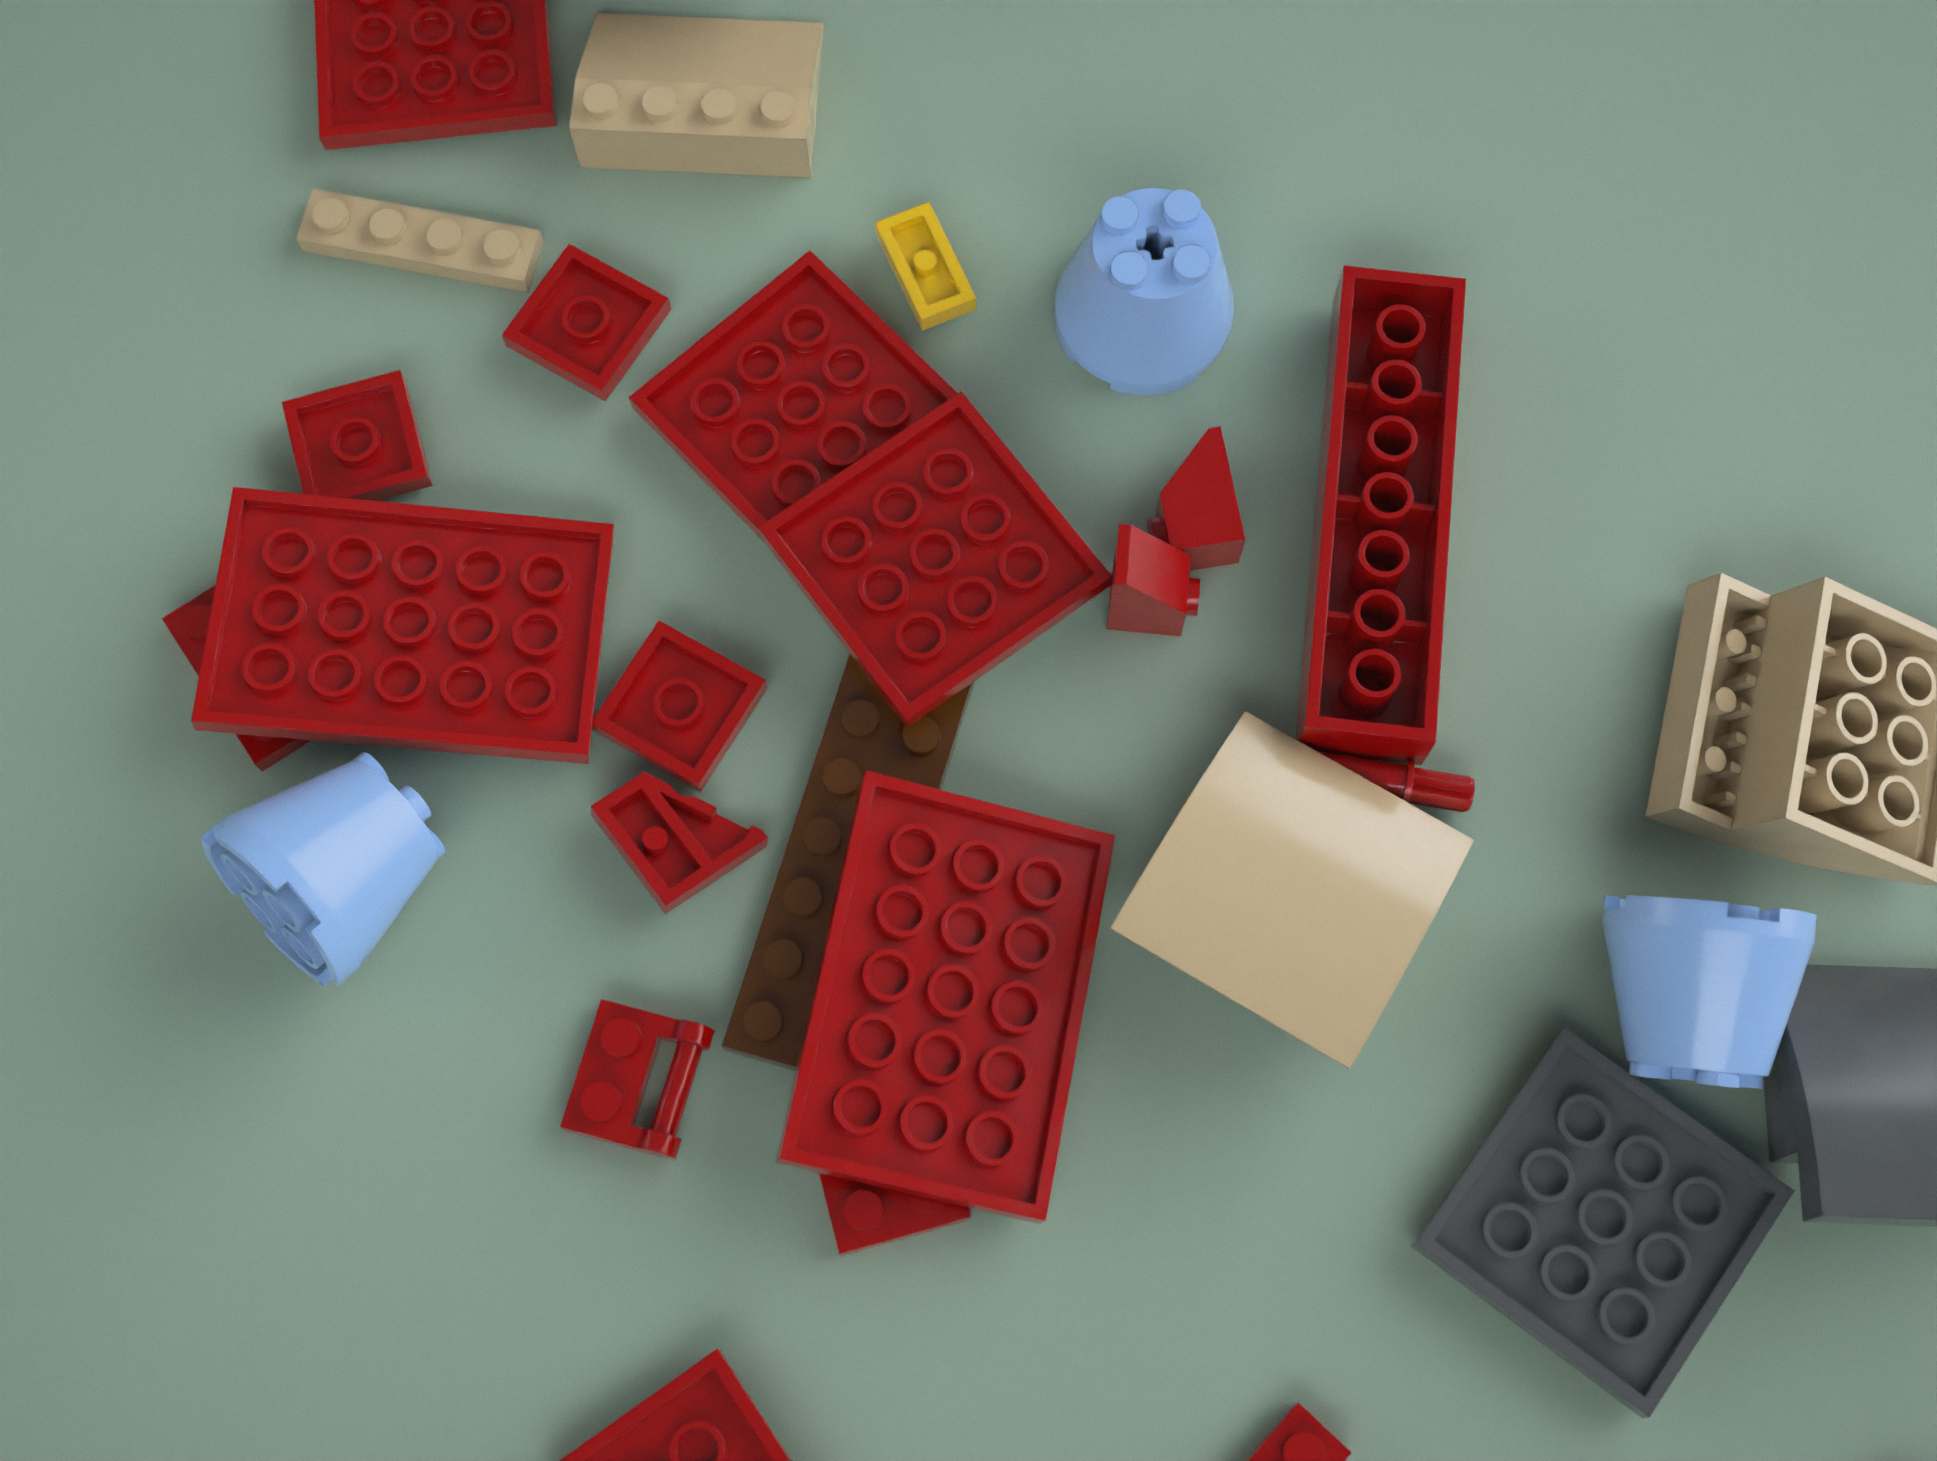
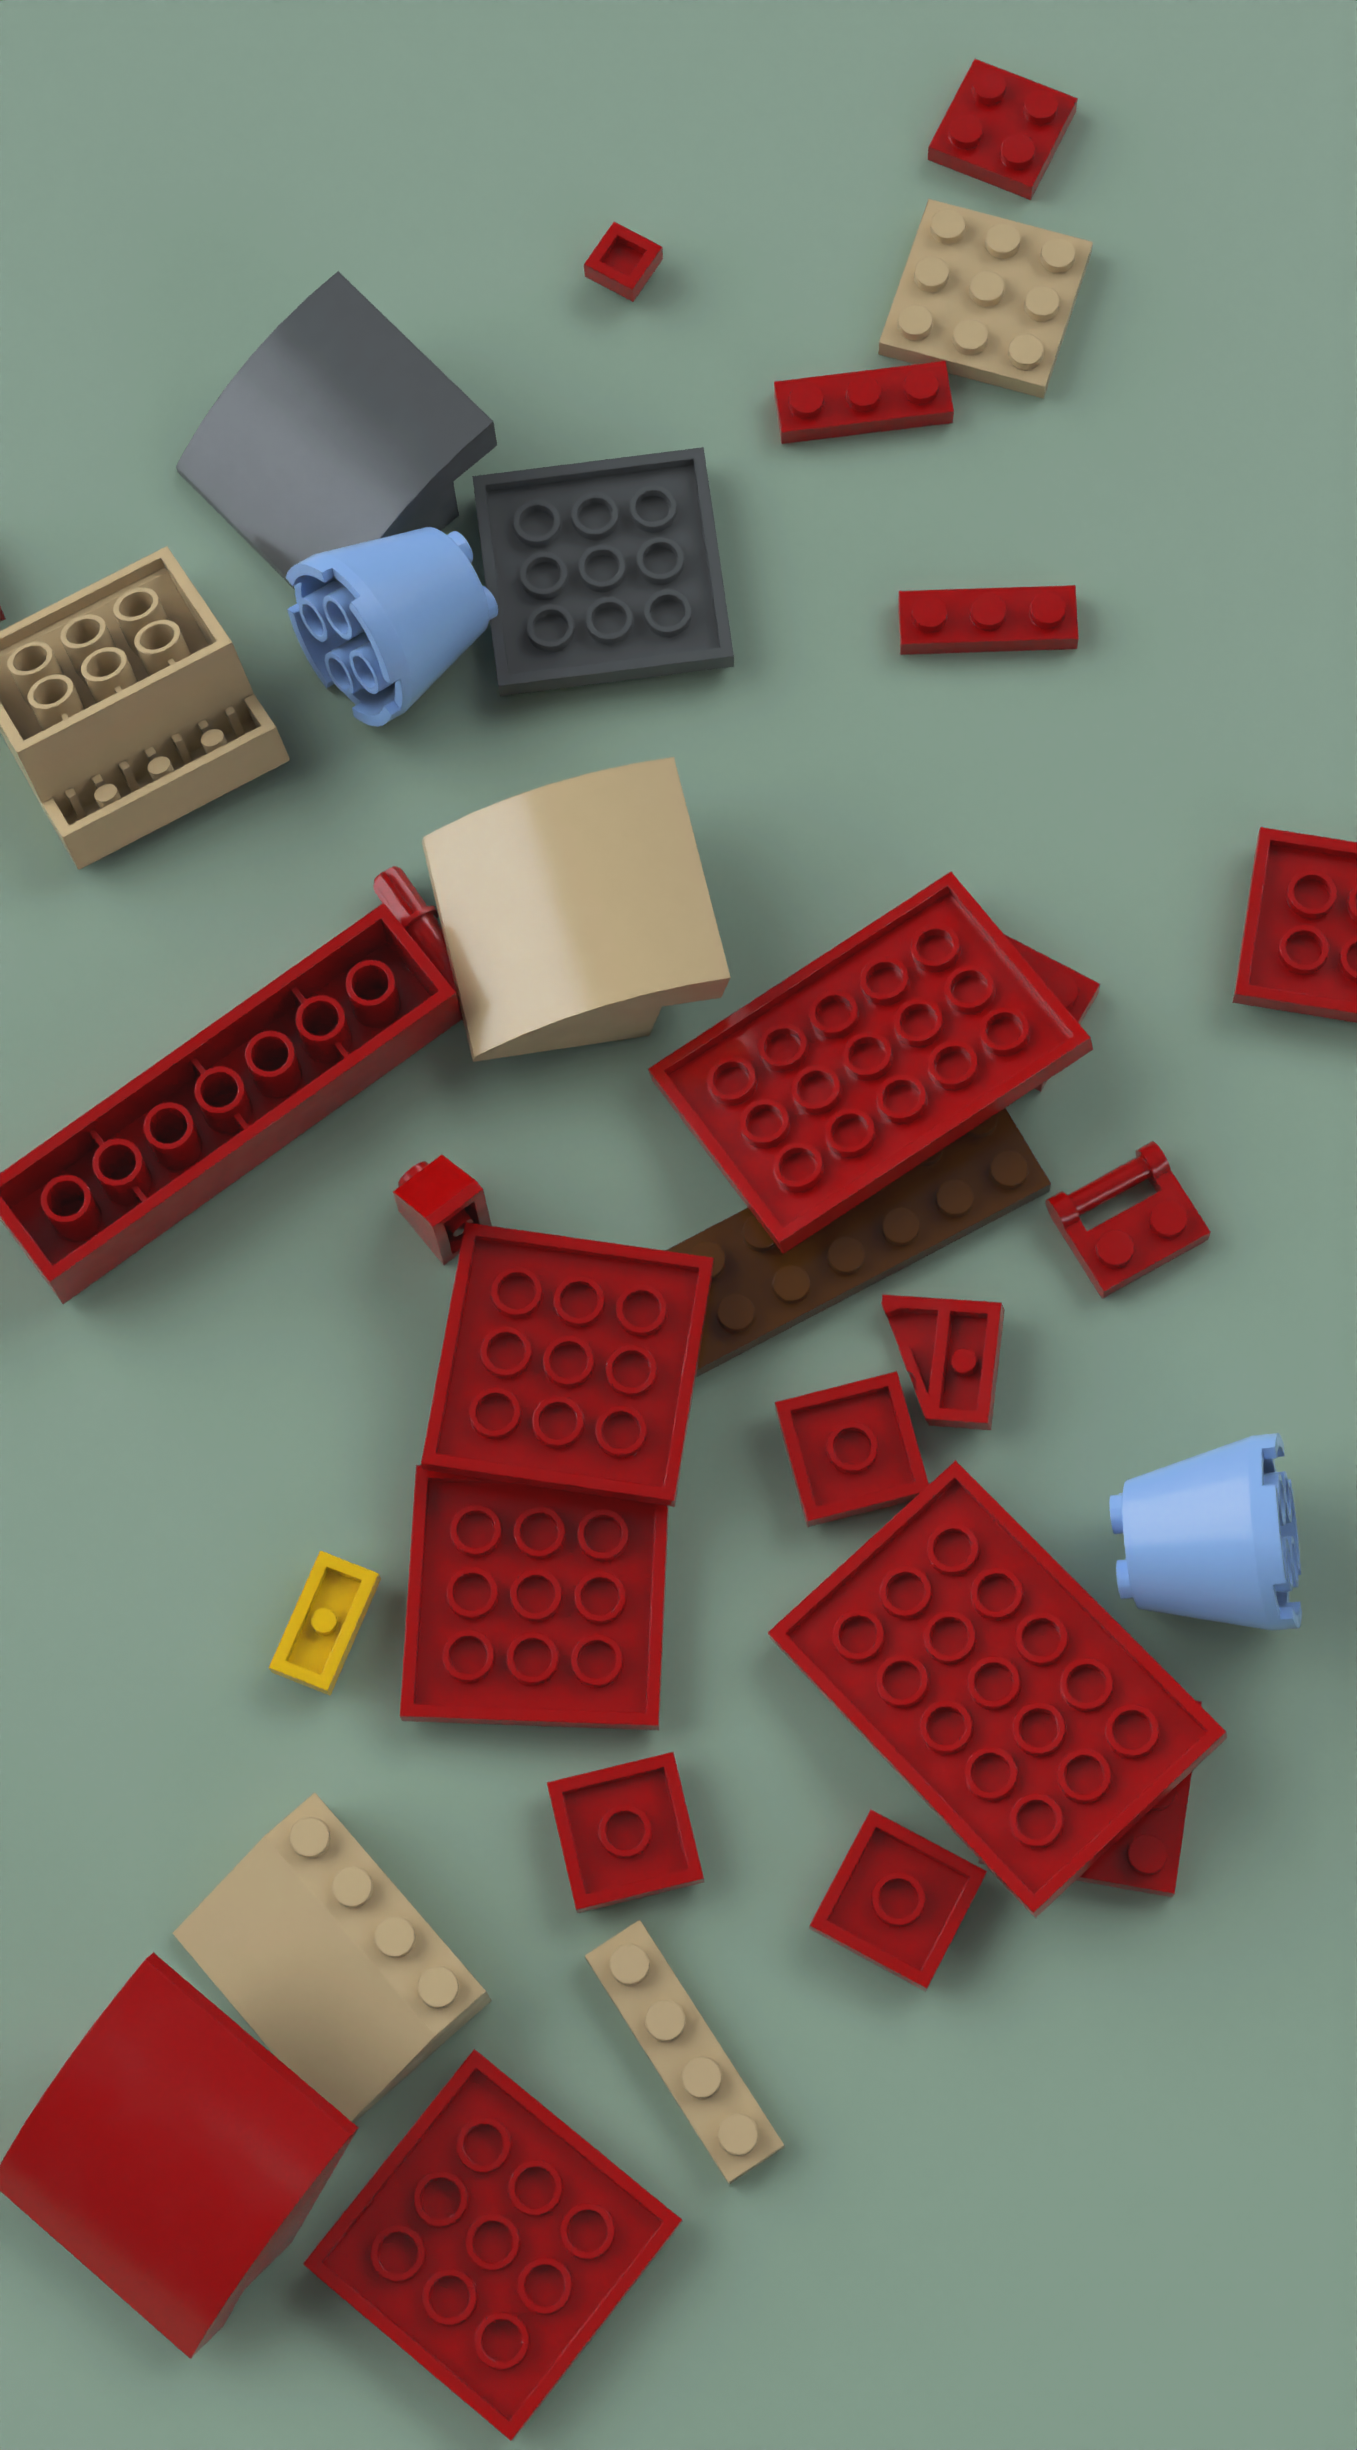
camera: 130 degrees left, 0 degrees up
(1146, 294) = (219, 1450): light blue cone -> none
(1201, 508) = (340, 1235): red slope -> none

